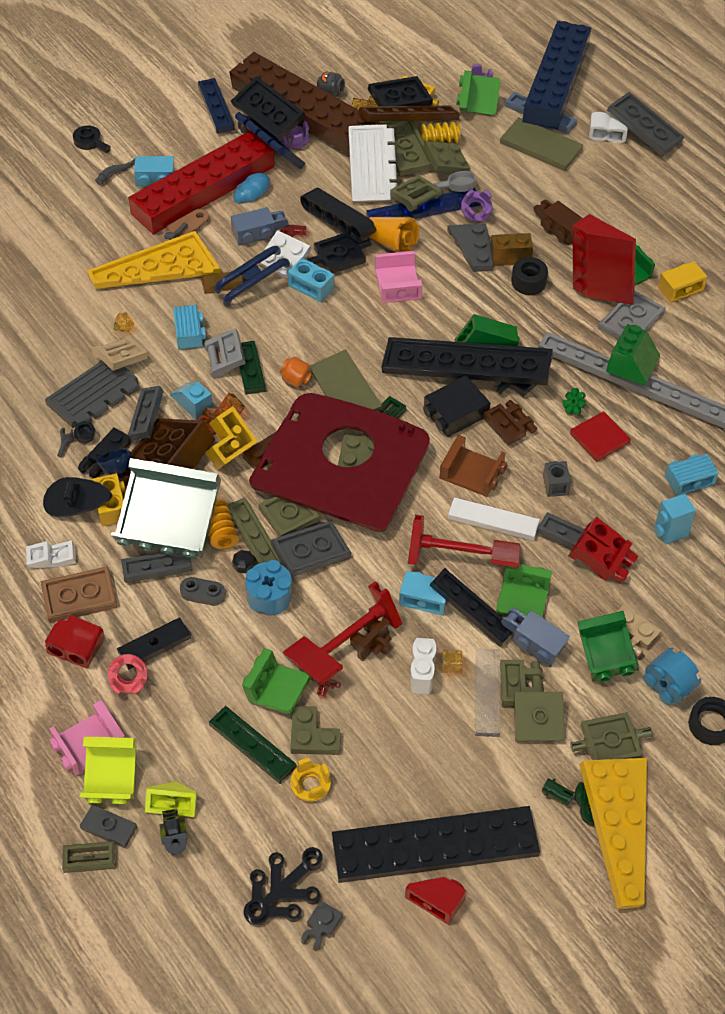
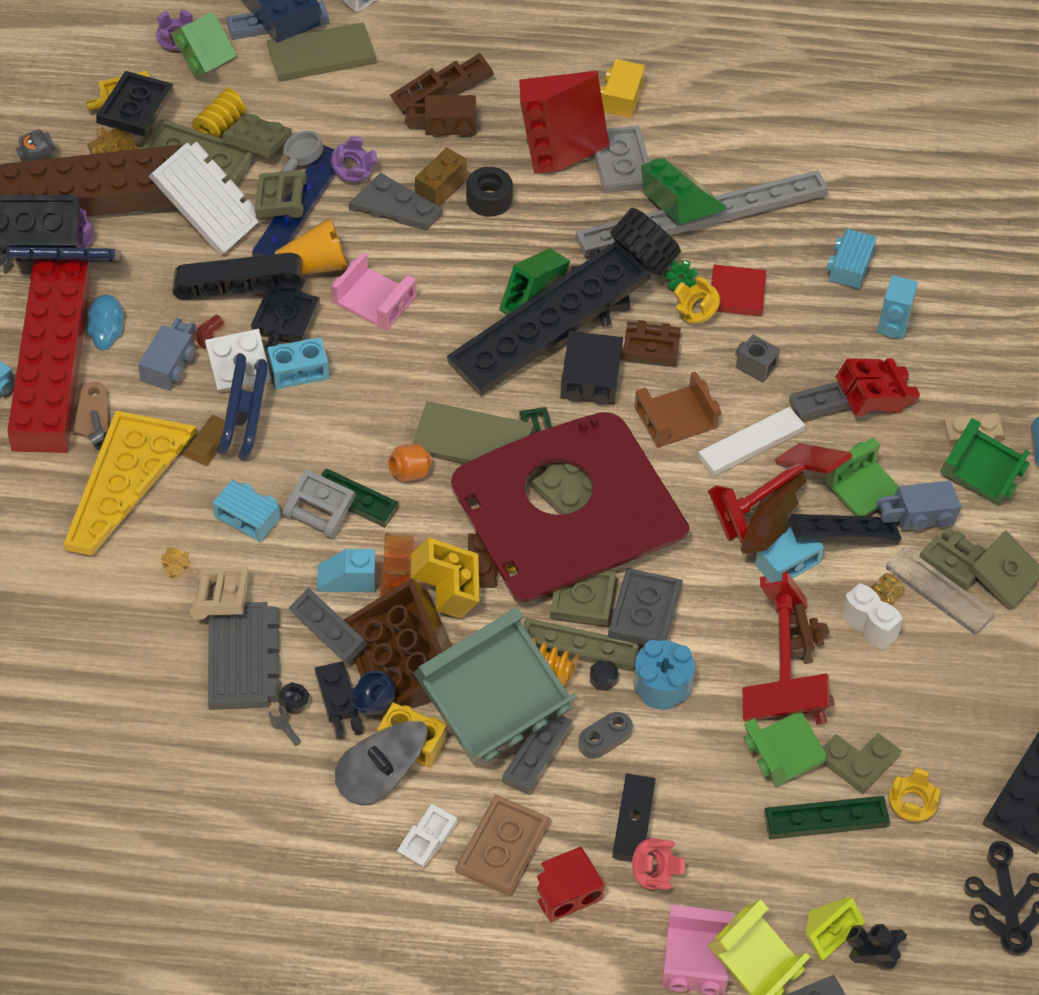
camera: 50 degrees left, 0 degrees up
(408, 113) = (171, 116): reddish brown tile -> none
(434, 562) = (771, 516): none -> reddish brown slope
(560, 424) = (689, 296): none -> yellow piece
(569, 362) = (646, 241): none -> black tyre
(586, 205) = (448, 81): none -> reddish brown slope

